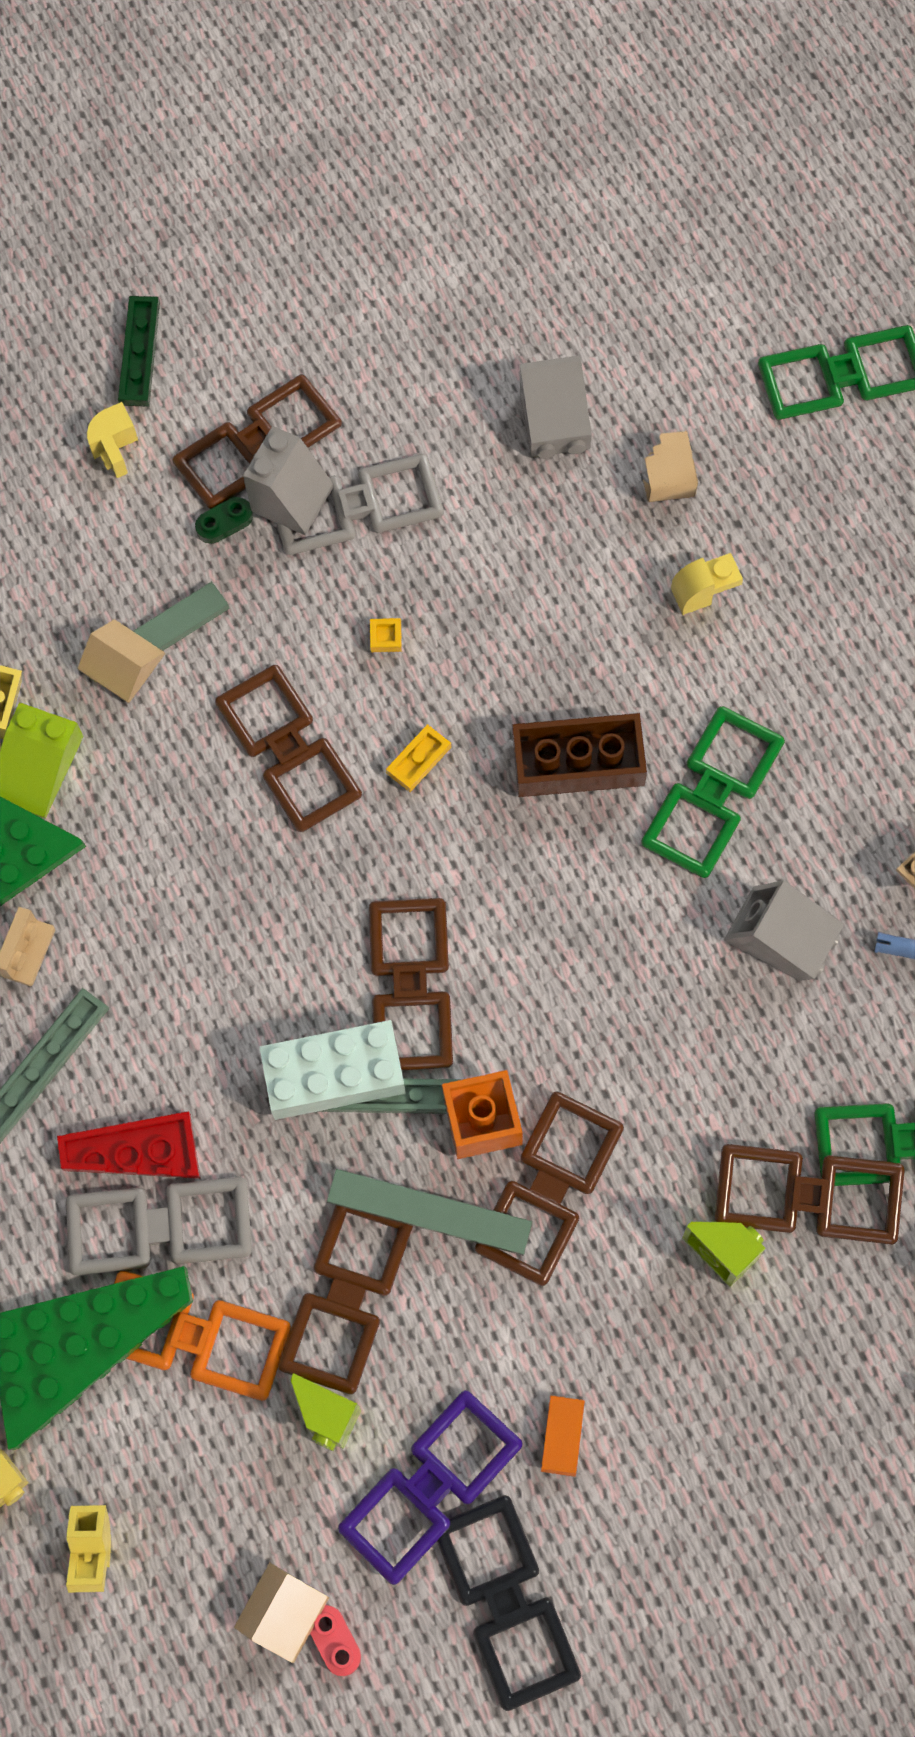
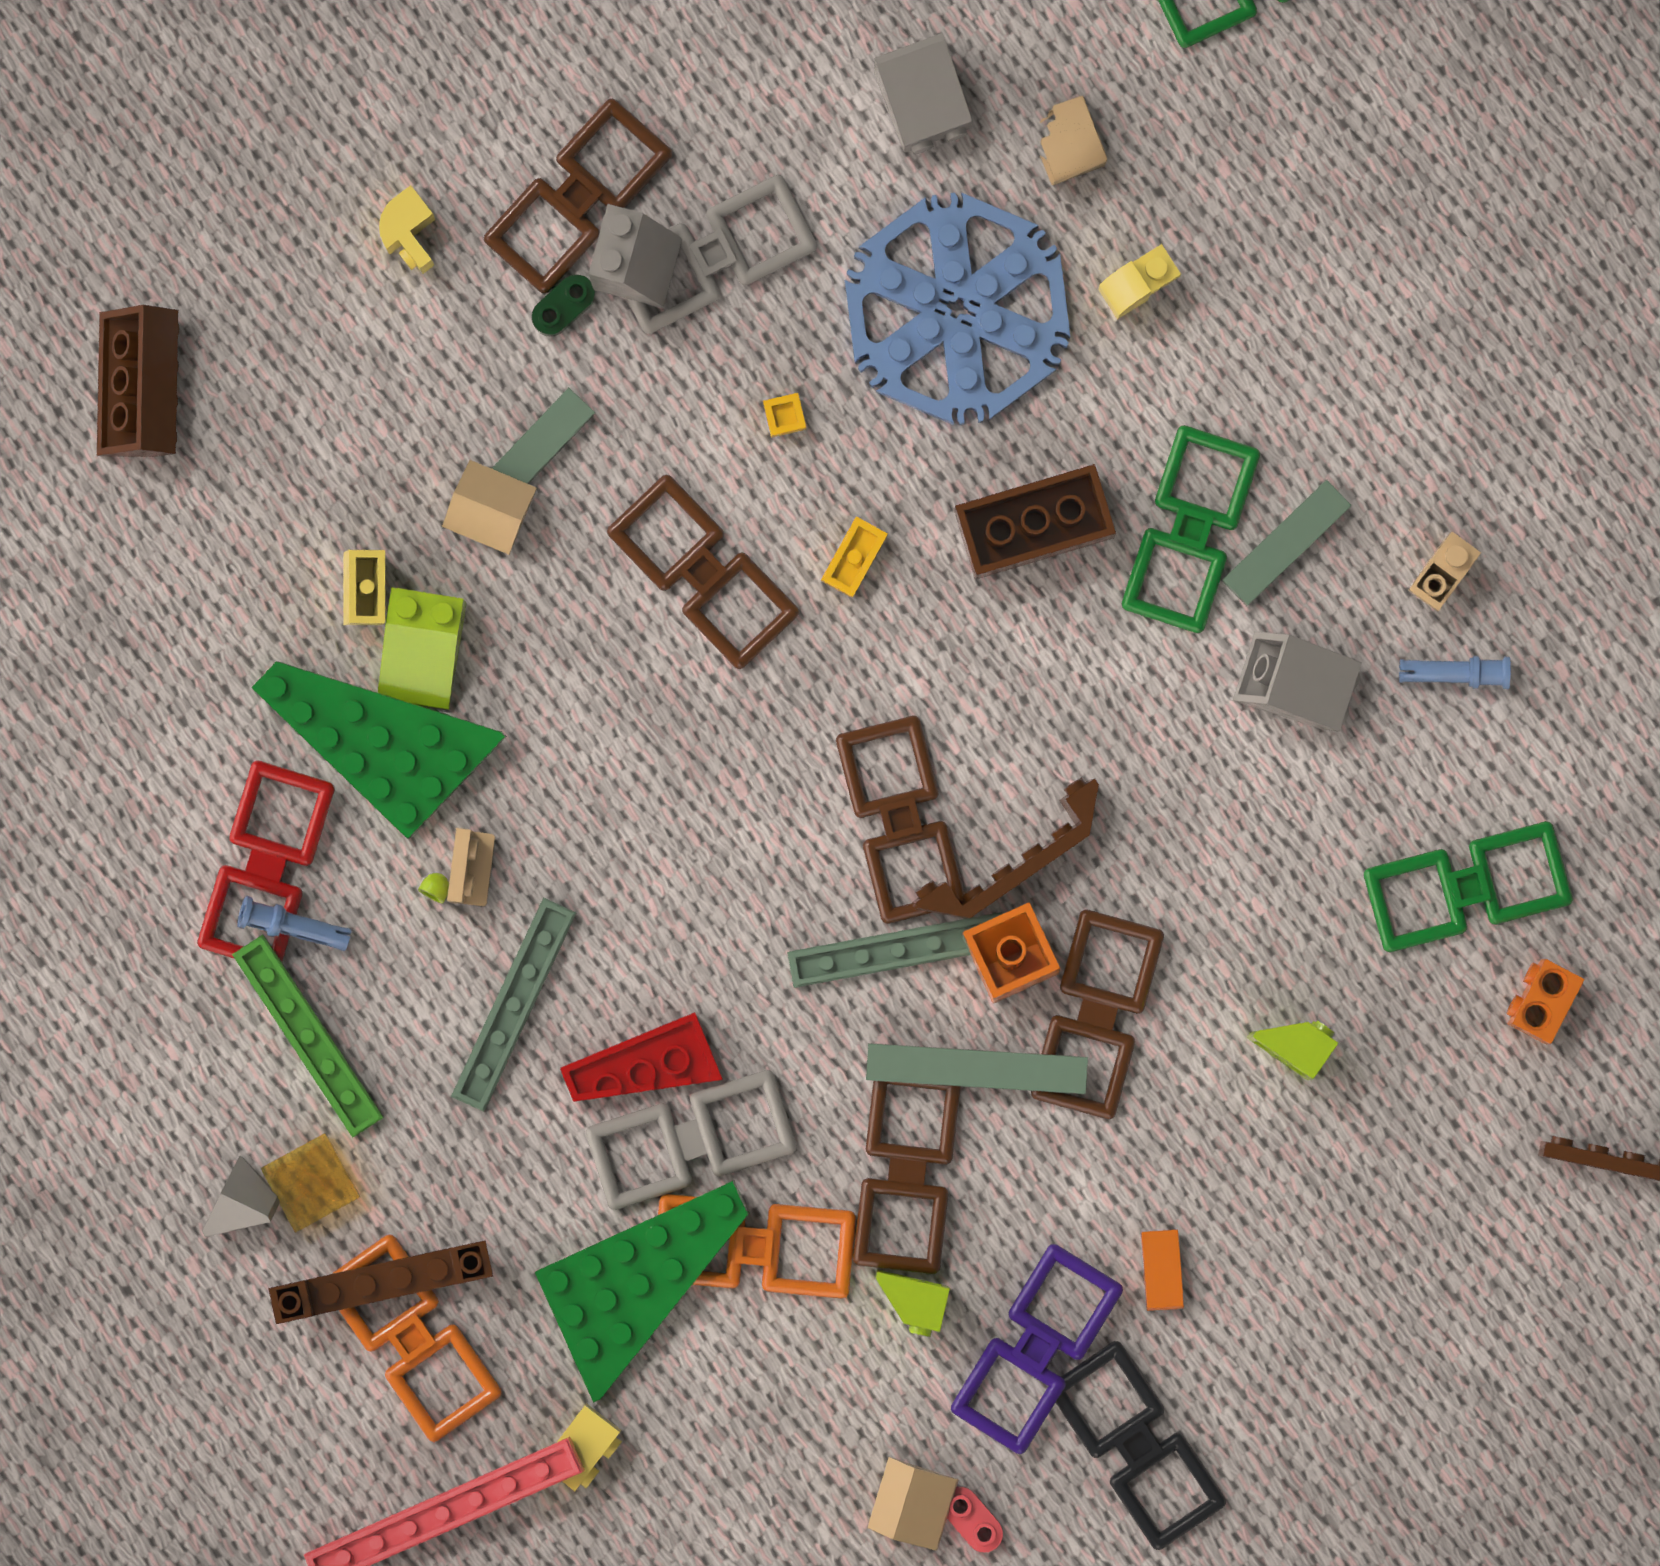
camera: 15 degrees left, 15 degrees up
(89, 1548) = (704, 1484): light yellow brick -> none
(139, 351) = (409, 106): dark green plate -> none
(332, 1070) = (841, 938): light aqua brick -> none
(429, 1055) = (1080, 807): none -> reddish brown slope
(548, 601) = (932, 329): none -> medium blue plate
(794, 817) = (1286, 543): none -> sand green tile
(810, 1193) = (1373, 966): reddish brown bar -> none

